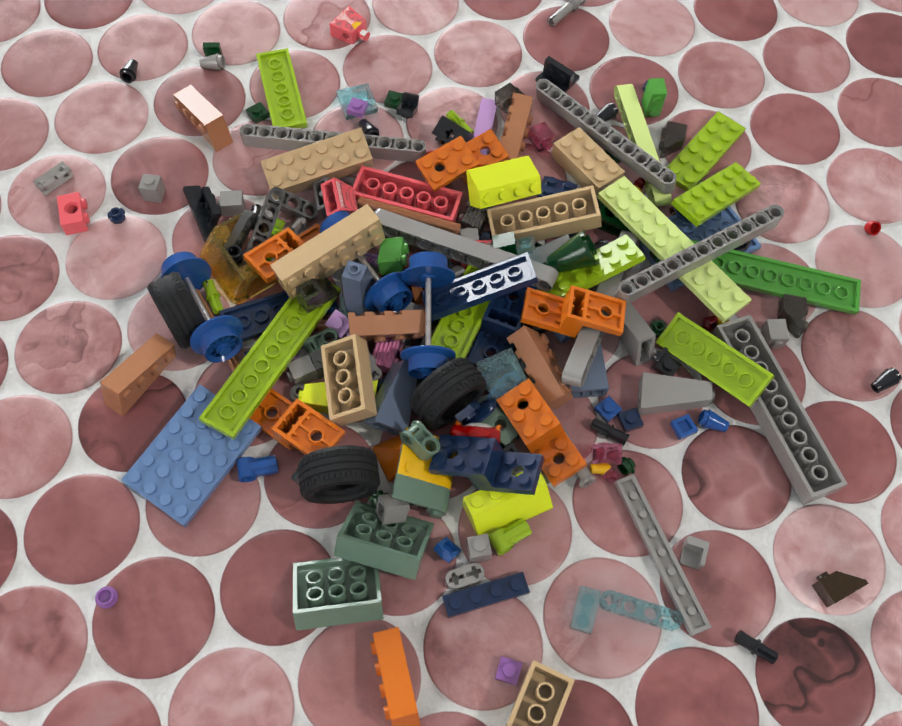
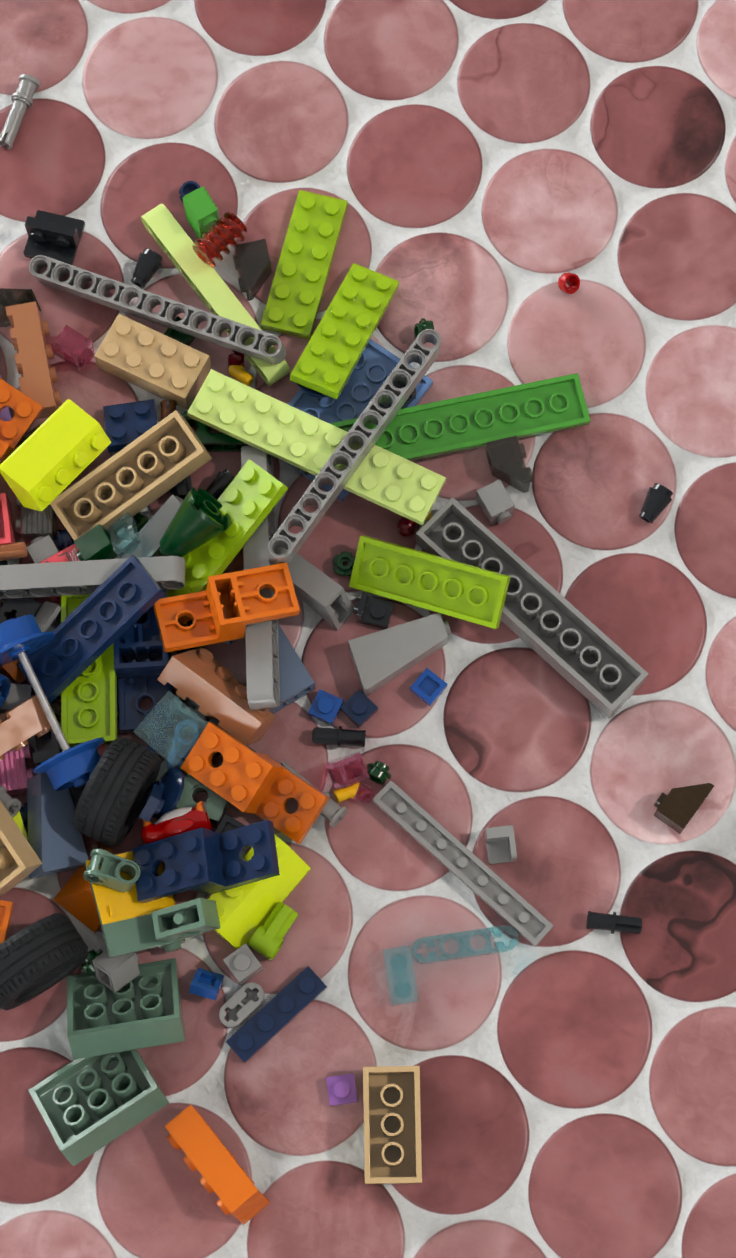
camera: 20 degrees left, 10 degrees up
(455, 496) = (185, 920): none -> sand green brick
(660, 111) = (219, 238): none -> clear red piece
(713, 421) = (460, 662): blue cone -> none

